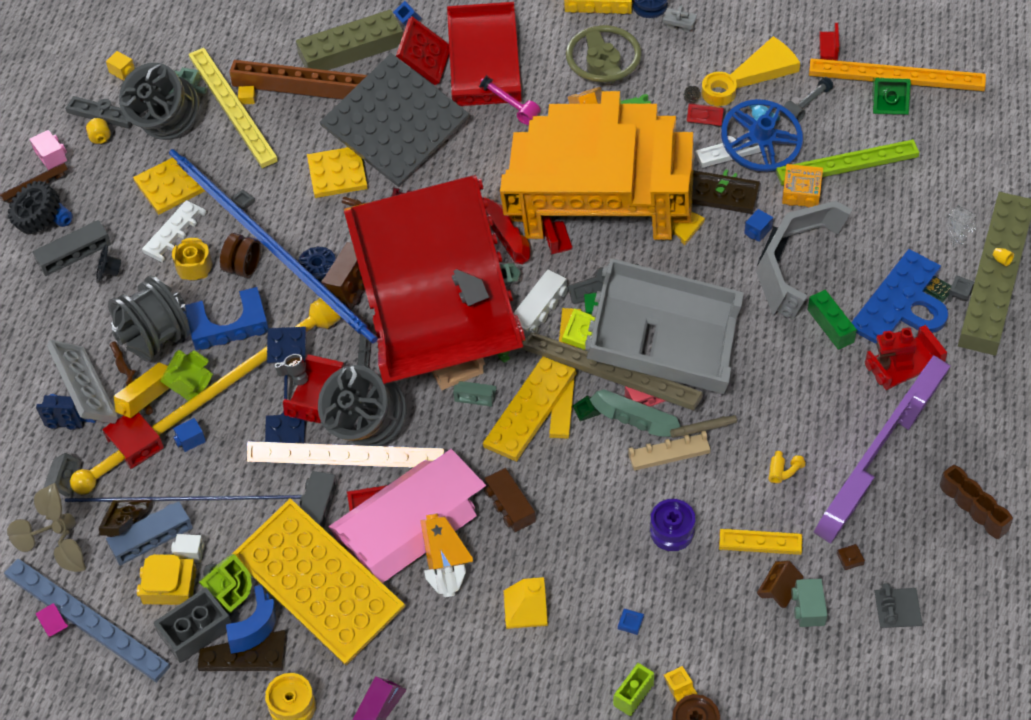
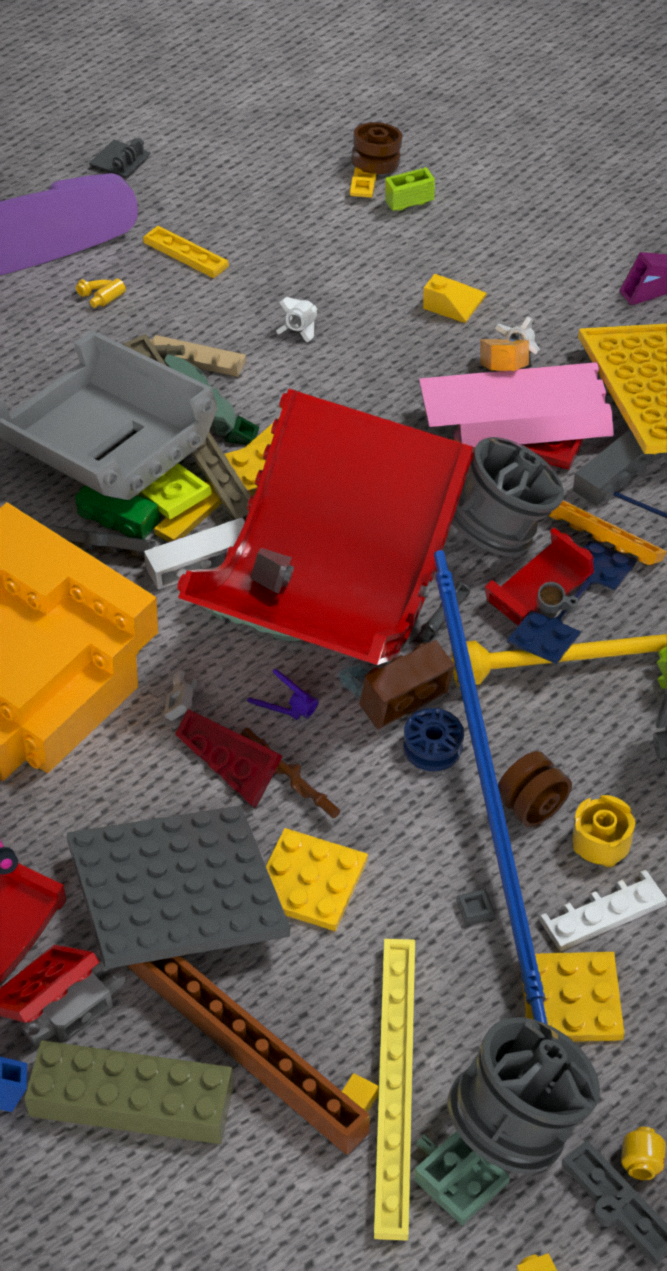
camera: 150 degrees left, 5 degrees down
(207, 334) = (570, 706): blue arch -> none
(509, 236) = (155, 676): red brick -> none
(509, 500) = (400, 380): reddish brown brick -> none
(619, 513) = (299, 317): none -> white brick
(630, 621) = (364, 248): blue tile -> none
(672, 524) = (257, 285): dark purple wheel -> none
(780, 582) = (204, 213): reddish brown panel -> none
(810, 602) = (194, 181): sand green brick -> none

